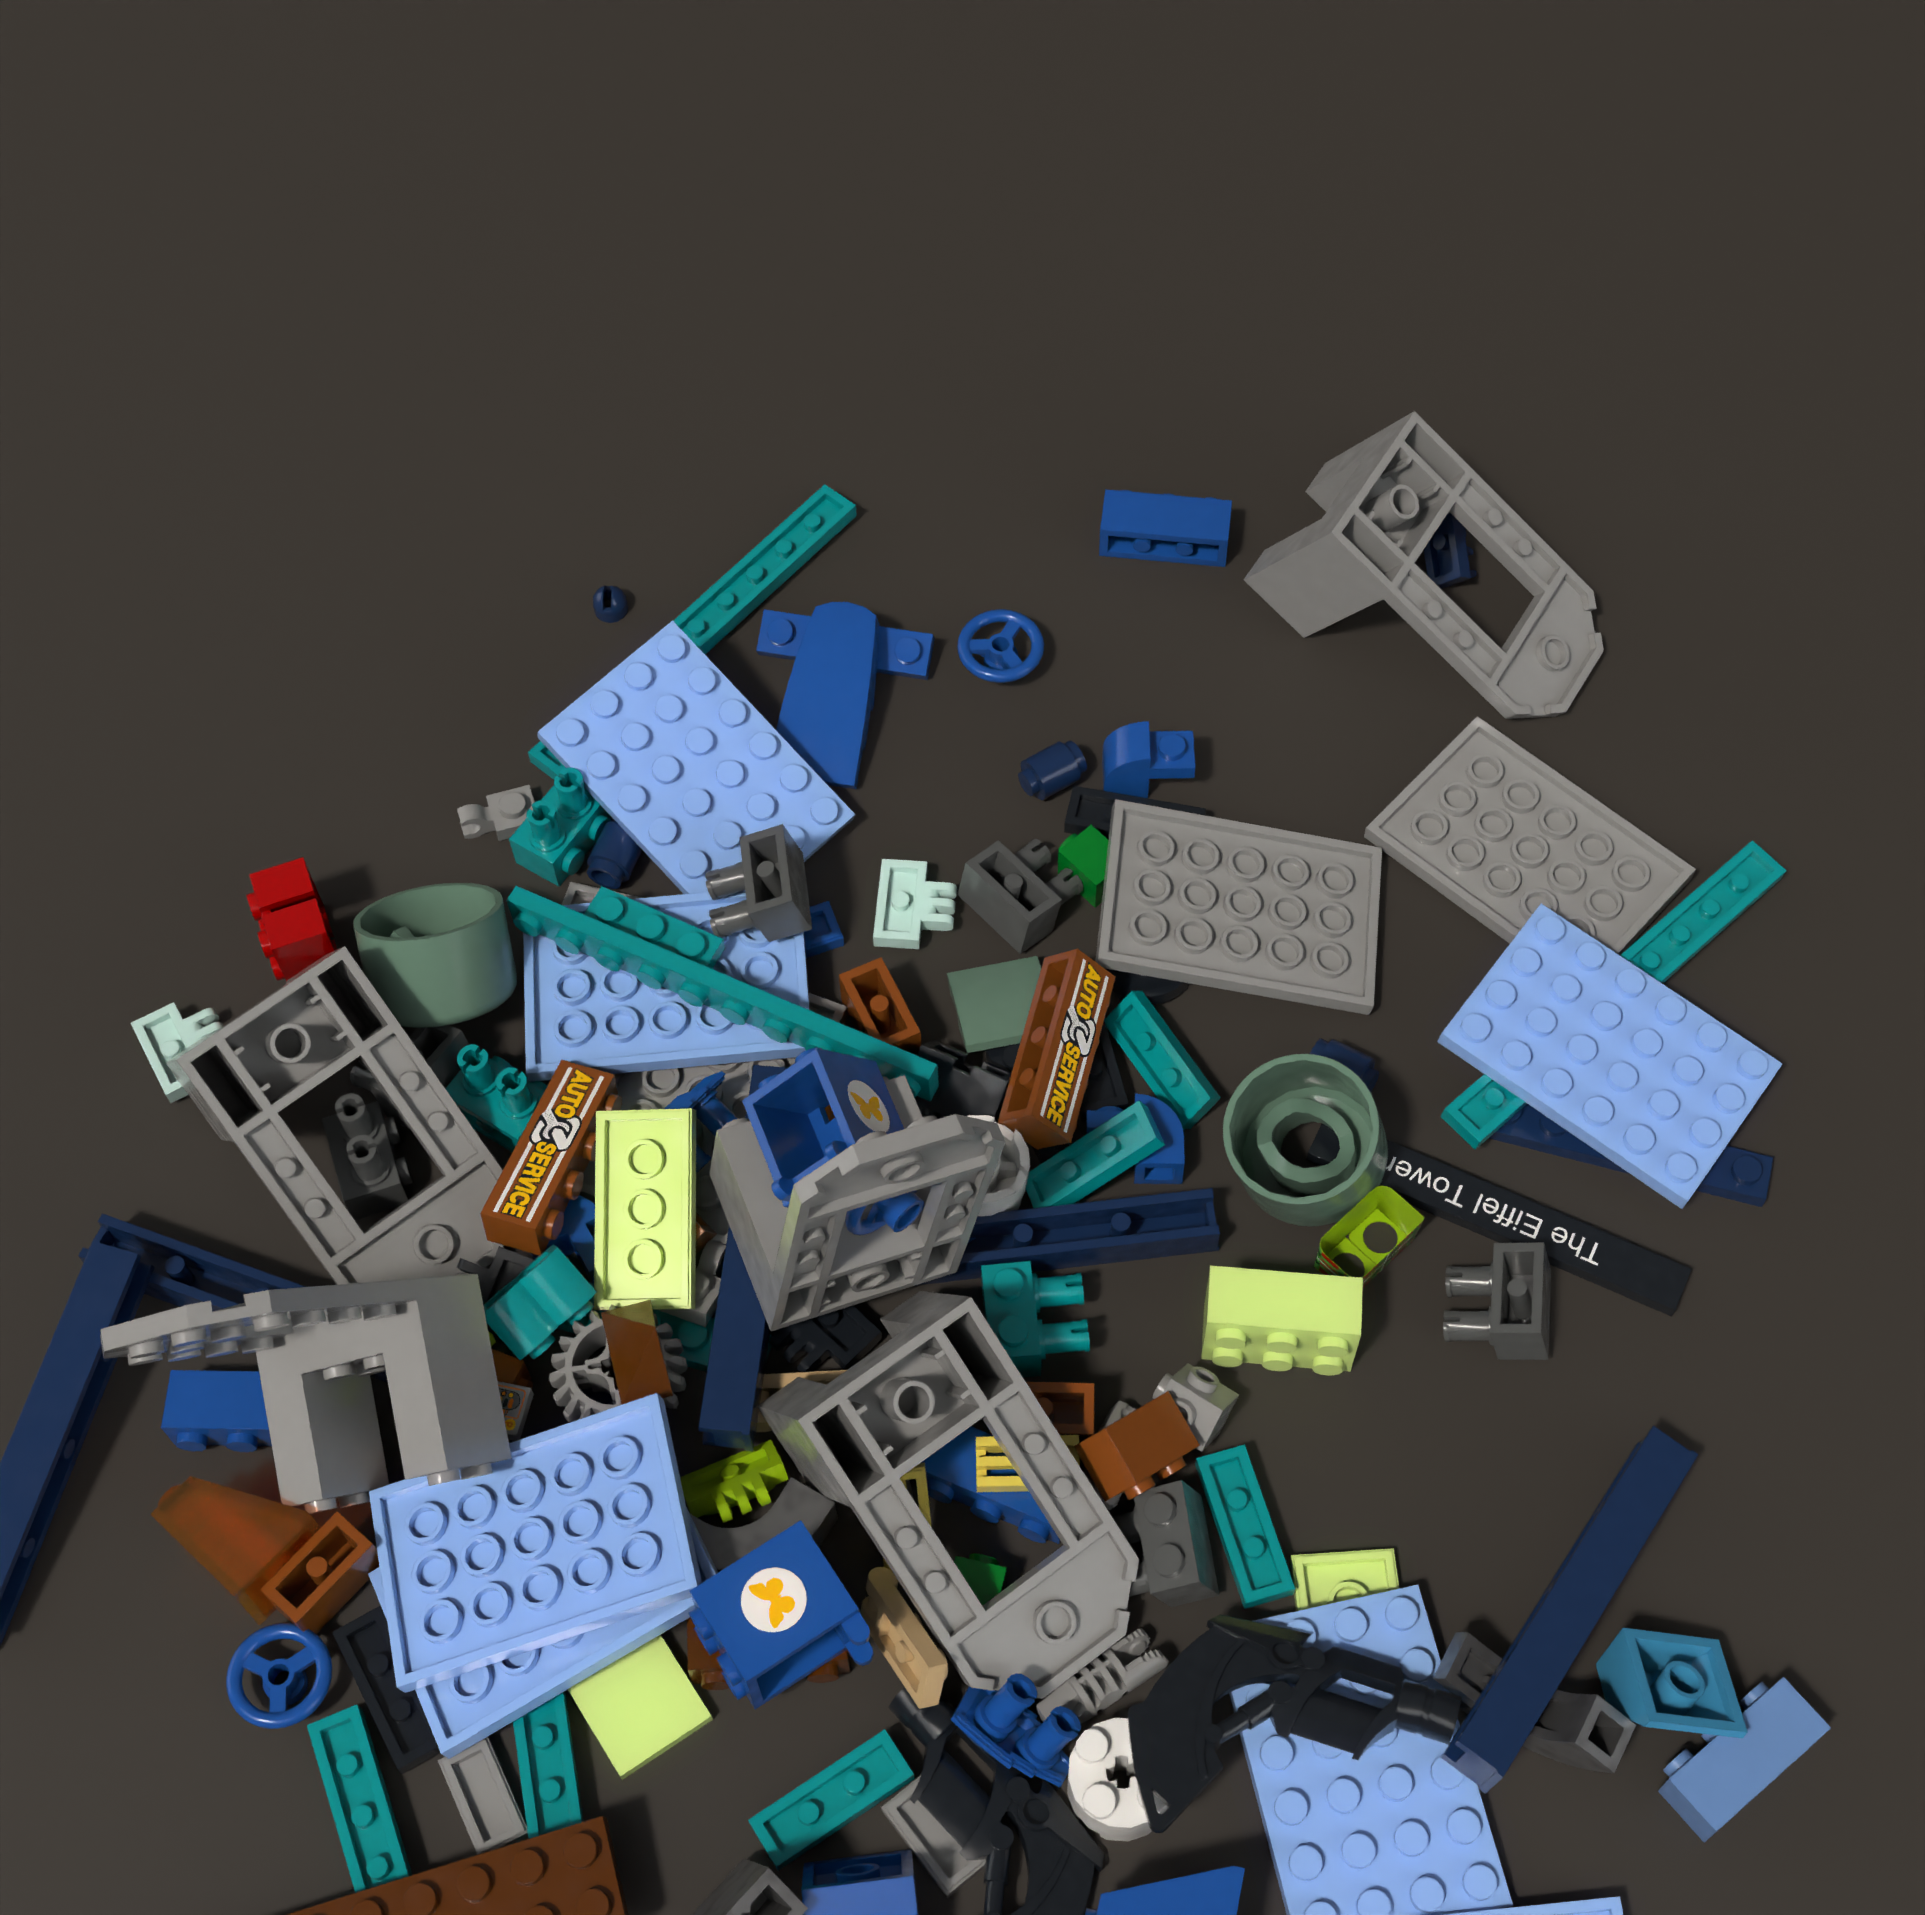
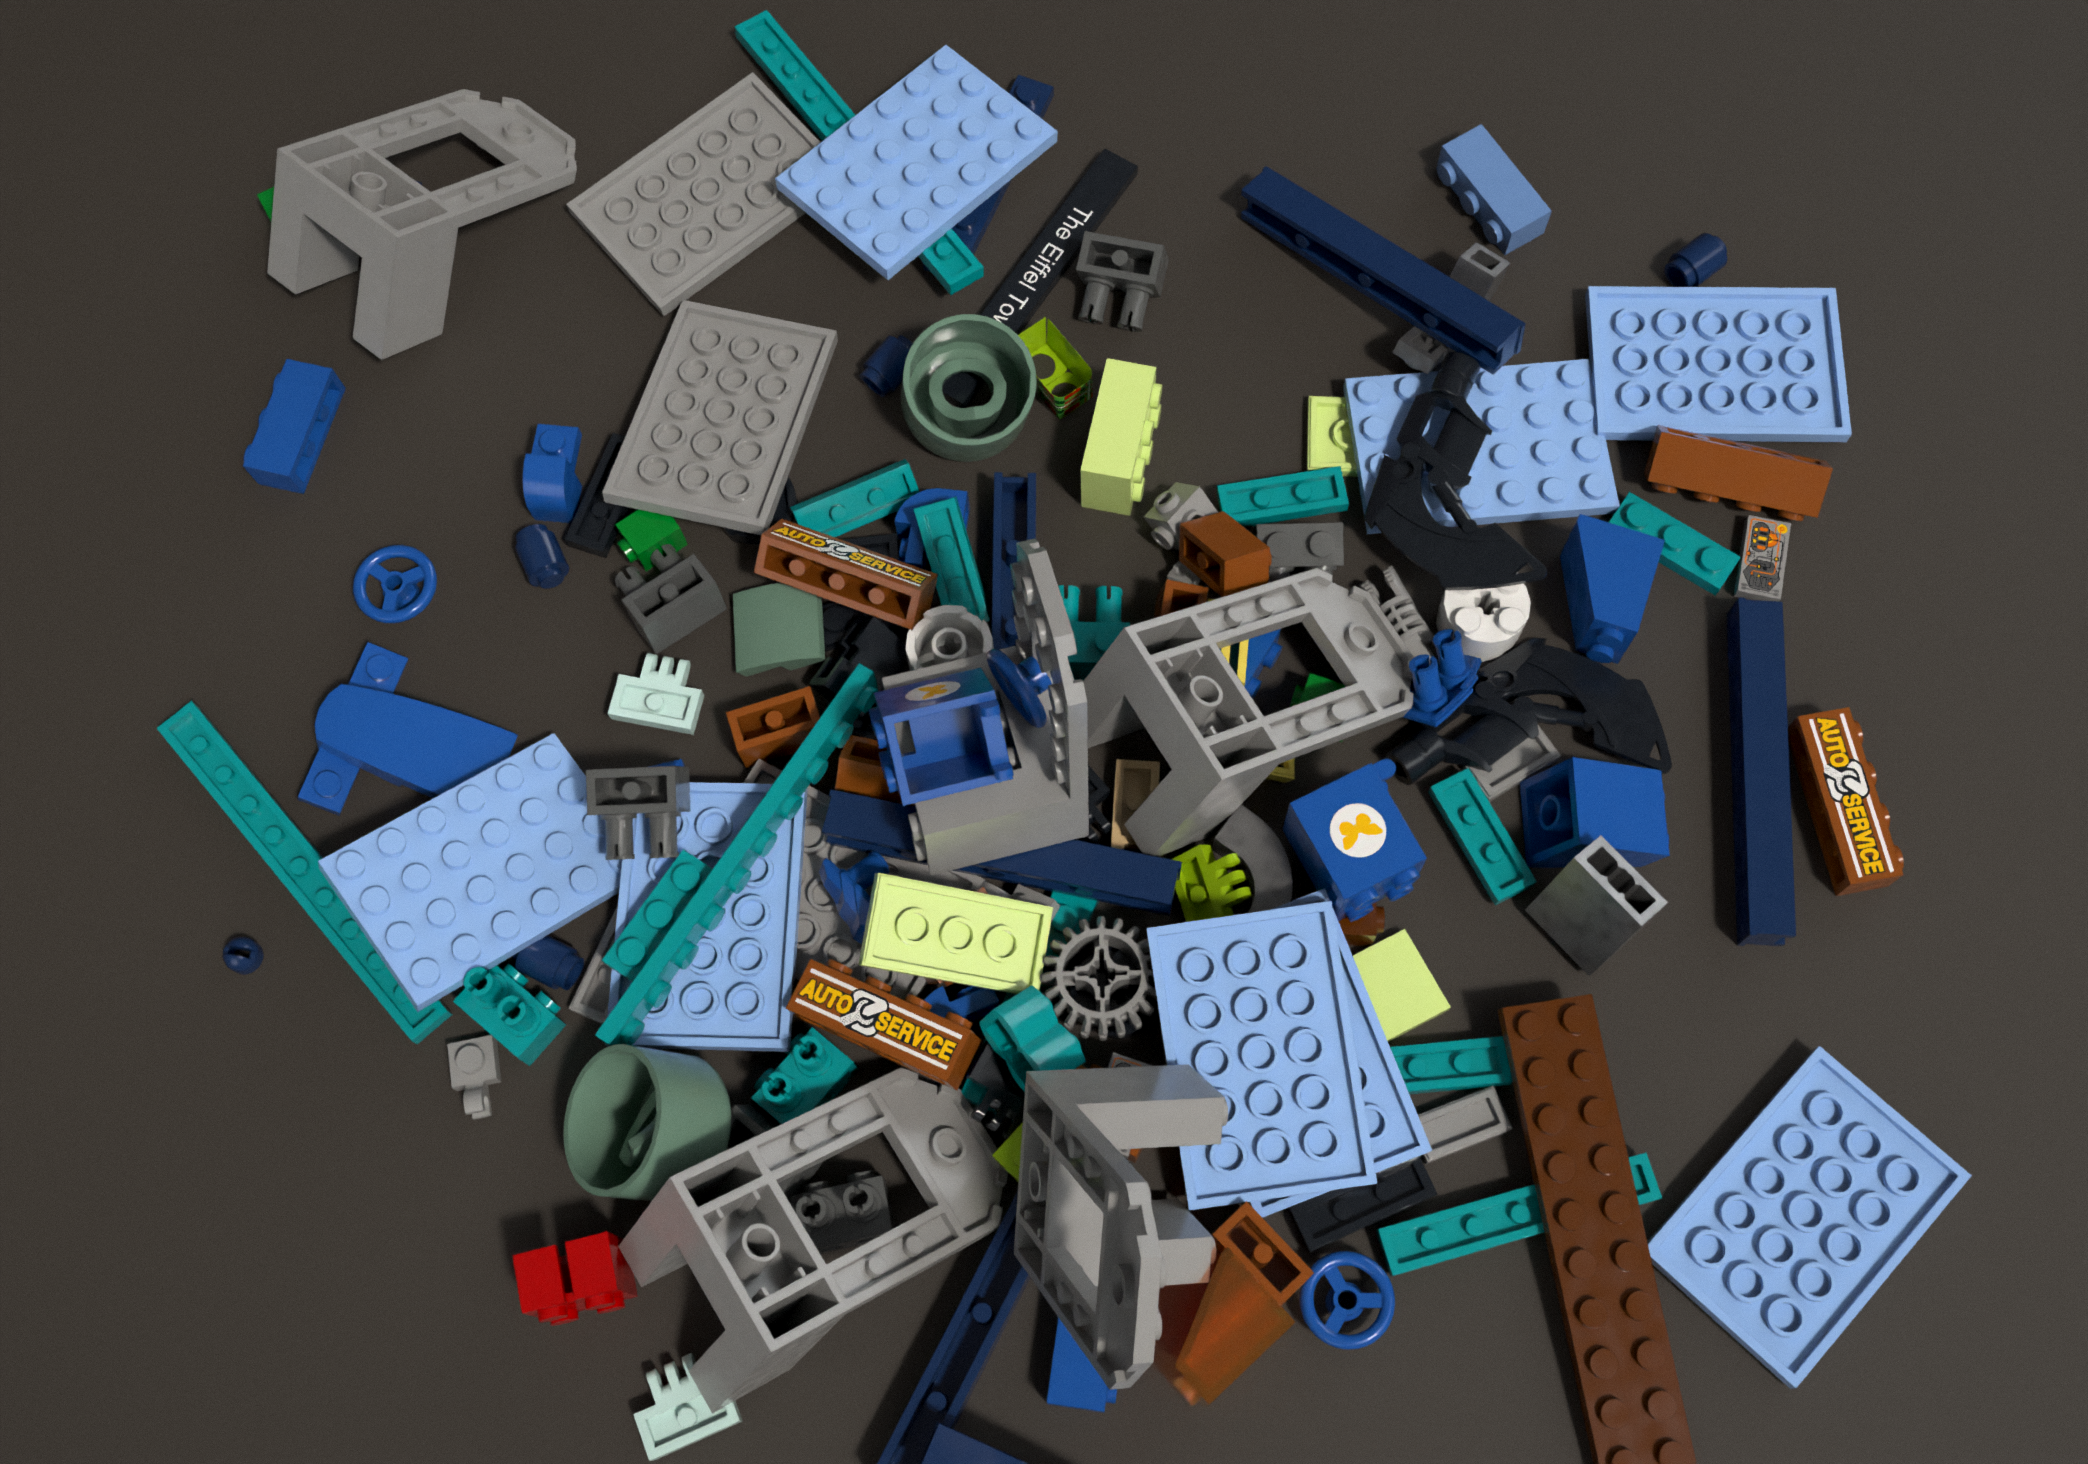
camera: 80 degrees left, 10 degrees up
(636, 1352) = (1096, 949): reddish brown slope -> none
(903, 1639) = (1393, 740): tan plate -> none
(1671, 1683) = (1445, 217): dark azure slope -> none

